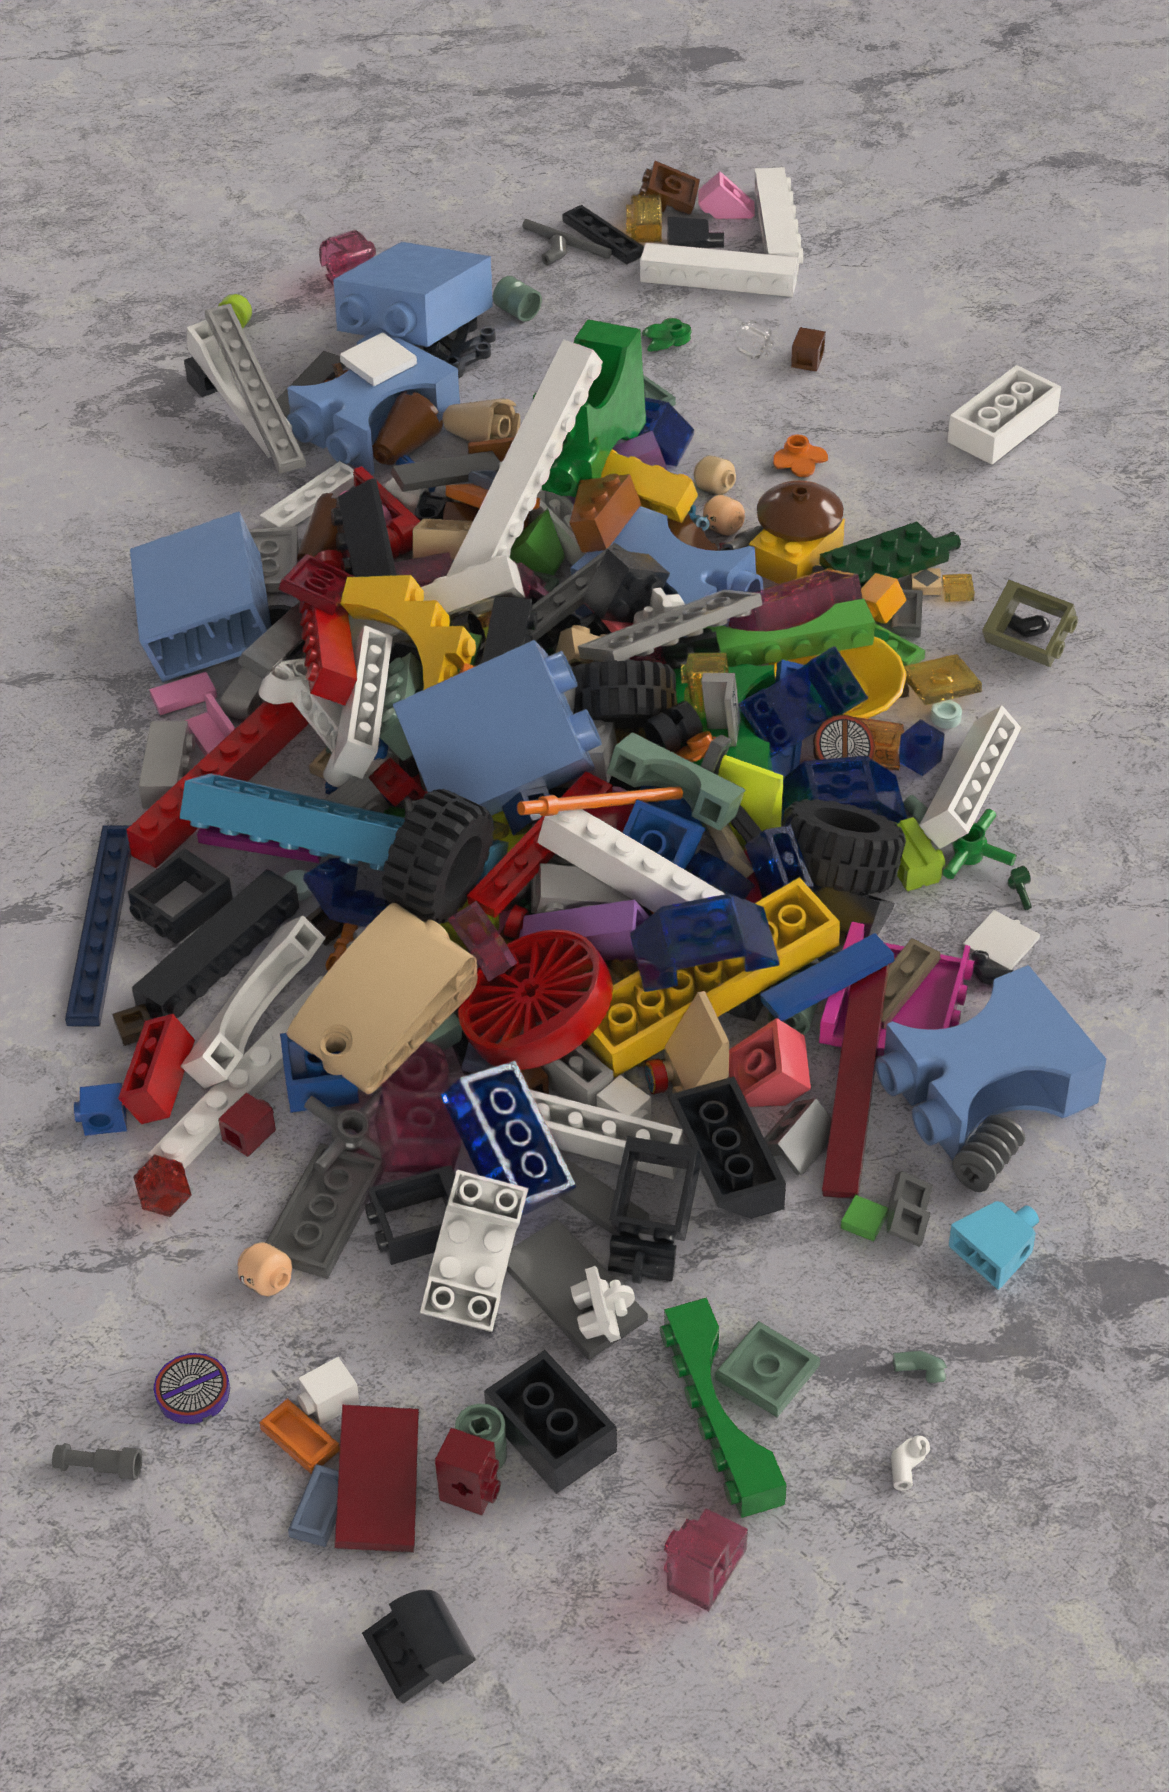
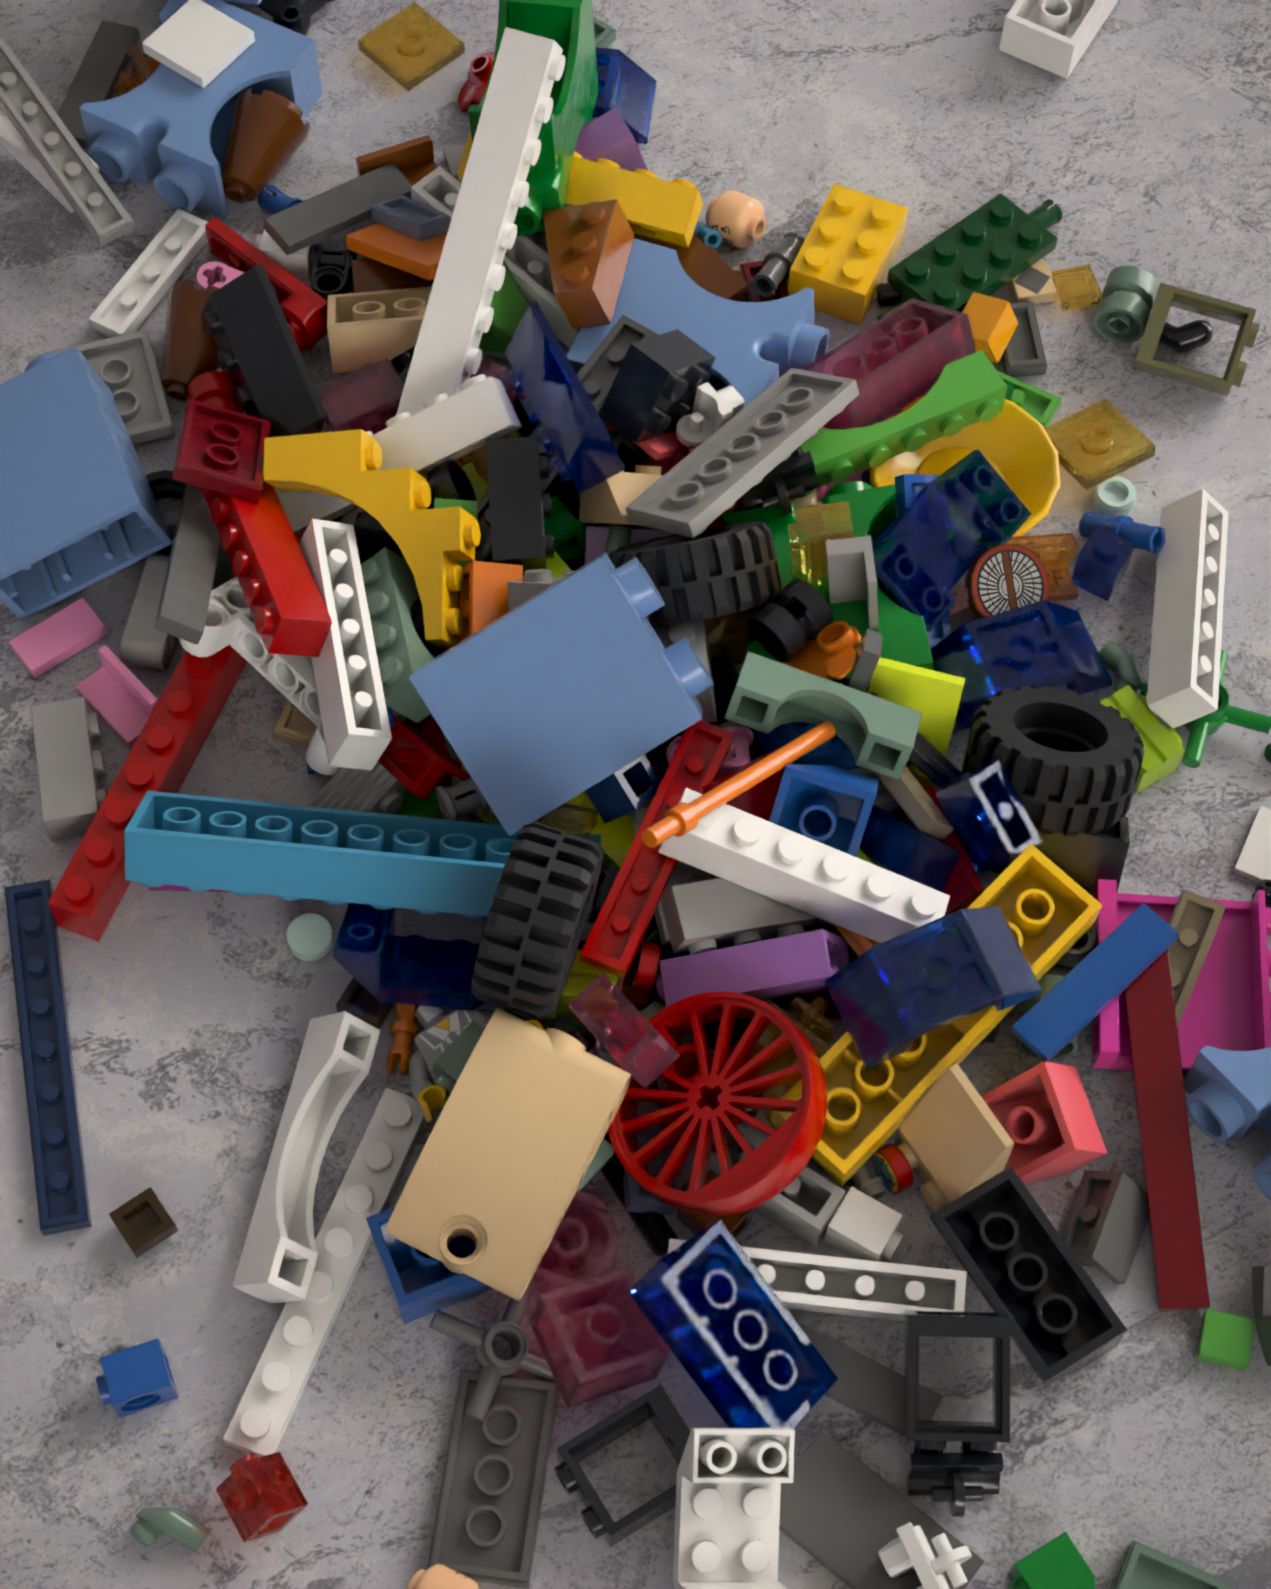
camera: 15 degrees left, 15 degrees up
(96, 1193) = (171, 1522): none -> sand green arm
(156, 1069) = (200, 1301): red brick -> none
(180, 868) = (170, 950): black window -> none
(217, 946) = (226, 1071): black brick -> none
(247, 1124) = (352, 1360): dark red brick -> none
(482, 420) = (364, 114): tan cone -> none
(521, 388) = (411, 46): none -> clear yellow tile
(552, 583) = (560, 403): none -> clear blue slope
(714, 475) = (706, 154): tan head -> none
(799, 456) = (809, 103): orange plate -> none
(800, 511) = (848, 208): reddish brown dish -> none
(953, 731) = (1145, 536): none -> blue pin
(982, 599) = (1125, 304): none -> sand green wheel

